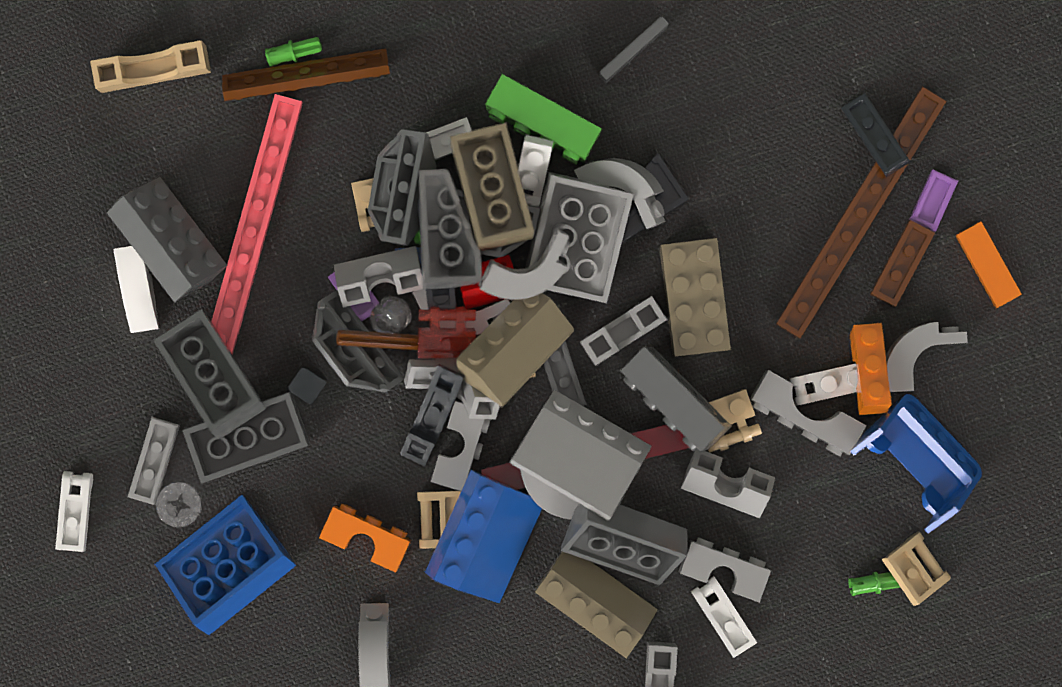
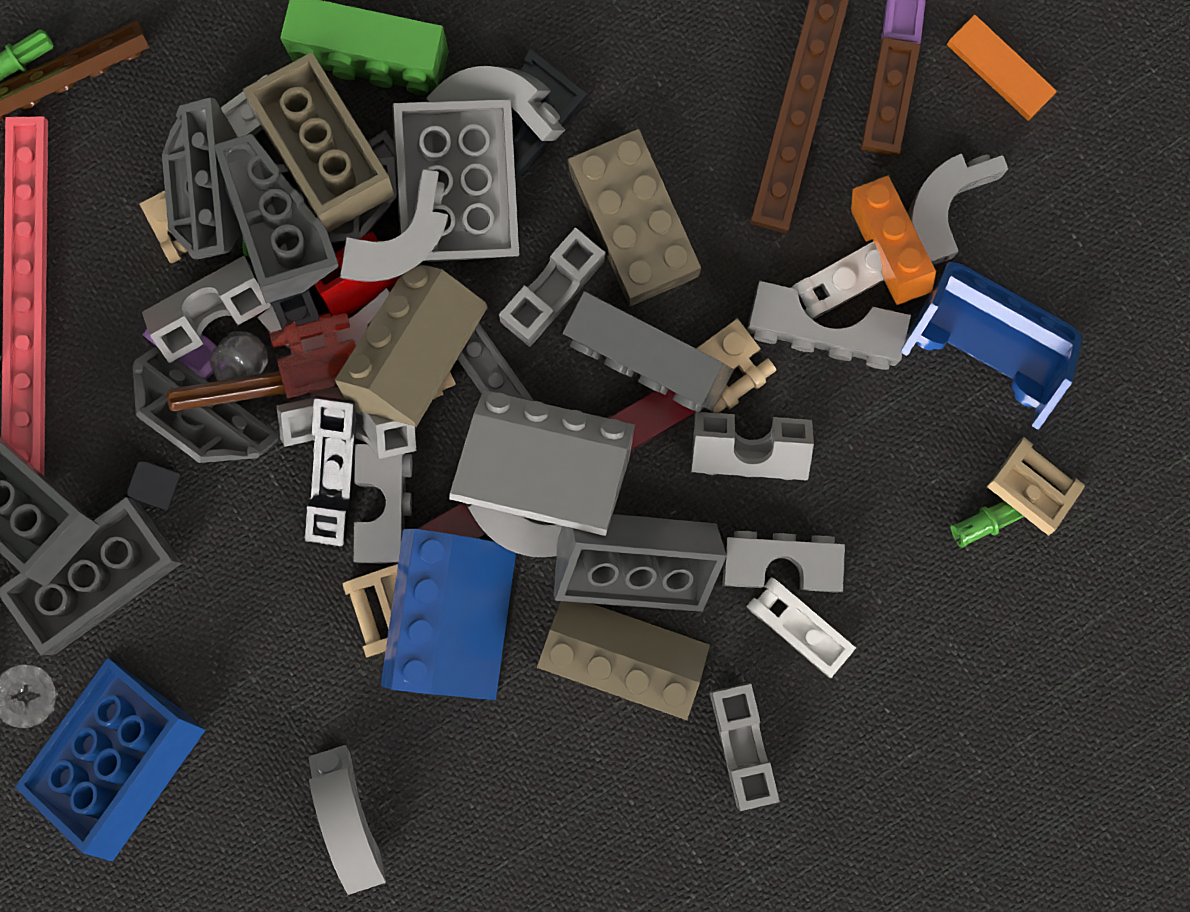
camera: 15 degrees left, 5 degrees down
(389, 544) = (254, 658): orange arch -> none
(534, 167) = (370, 103): white plate -> none

